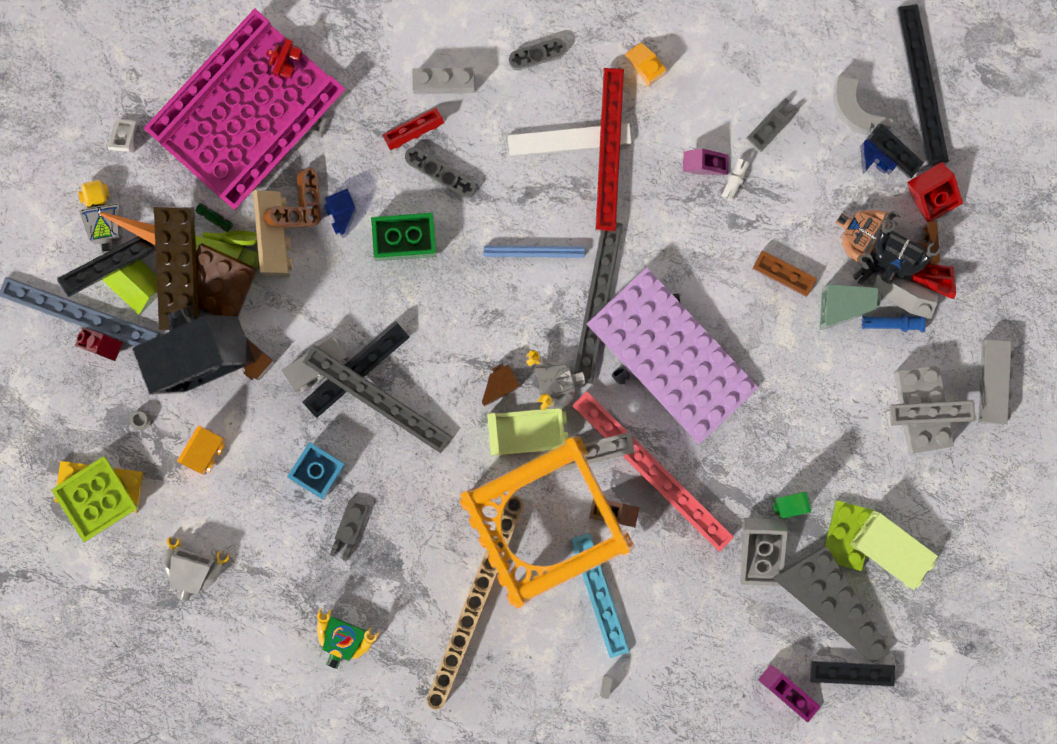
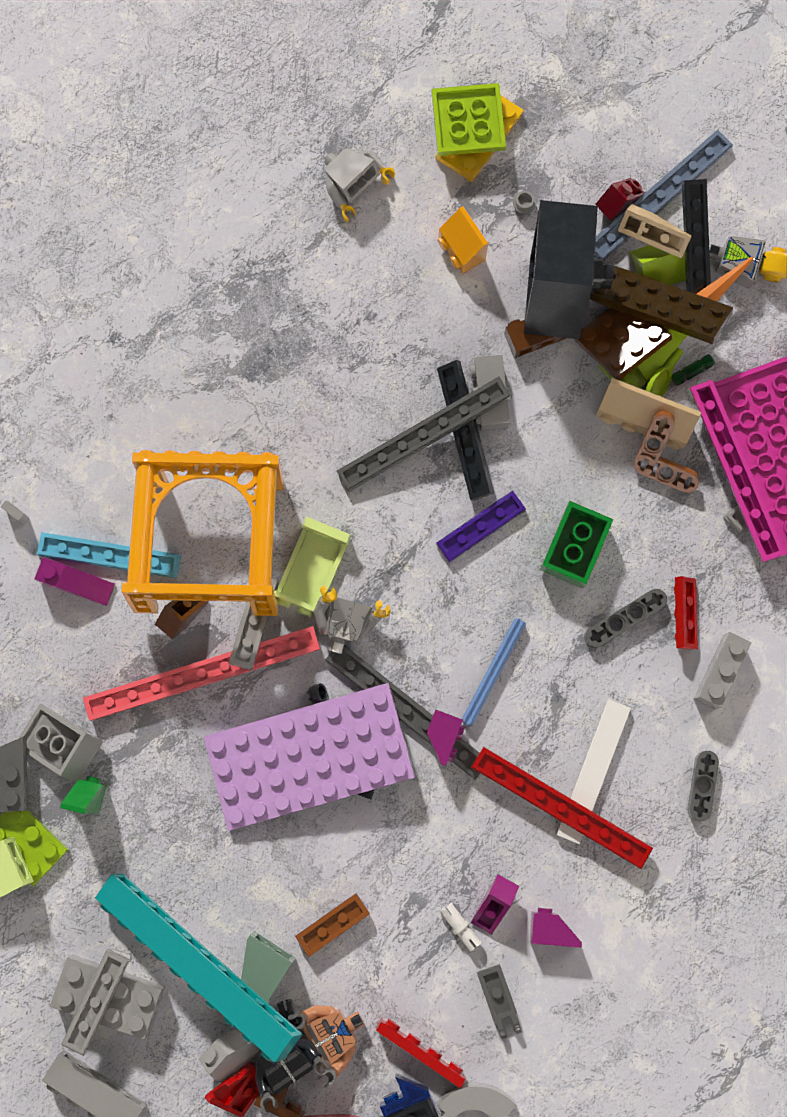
camera: 120 degrees right, 5 degrees down
(117, 301) = (654, 231): none -> tan slope
(316, 470) = (383, 340): dark azure brick -> none
(342, 210) = (635, 498): clear blue slope -> none
(342, 639) = (206, 284): torso -> none
(349, 528) = (311, 346): dark grey hinge -> none
(425, 318) = (480, 526): none -> dark purple tile
(475, 613) = (162, 420): tan beam -> none
(499, 384) = (374, 564): reddish brown slope -> none
(601, 263) = (442, 734): none -> magenta slope
(635, 608) = (74, 581): none -> magenta slope
(646, 64) = (635, 897): light orange slope -> none
(702, 113) = (550, 929): none -> magenta slope
(837, 171) = (429, 1057): none -> red plate
(867, 352) = (199, 968): none -> teal brick
(904, 323) = (209, 1030): blue pin -> none

